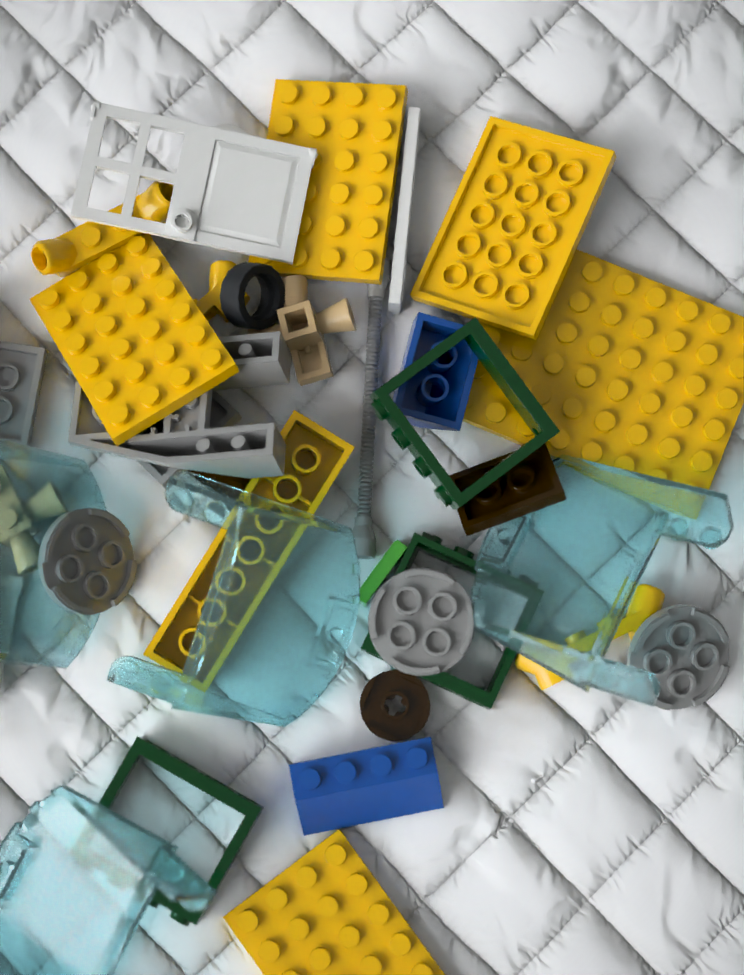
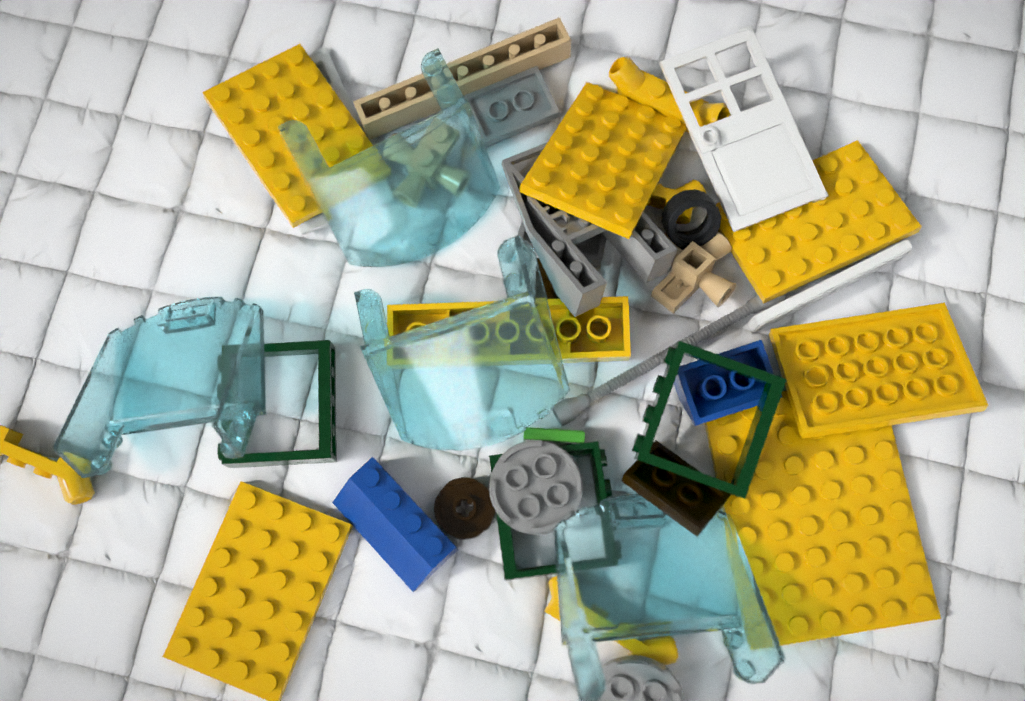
camera: 60 degrees right, 5 degrees down
(87, 561) = (429, 229): light grey tile -> none

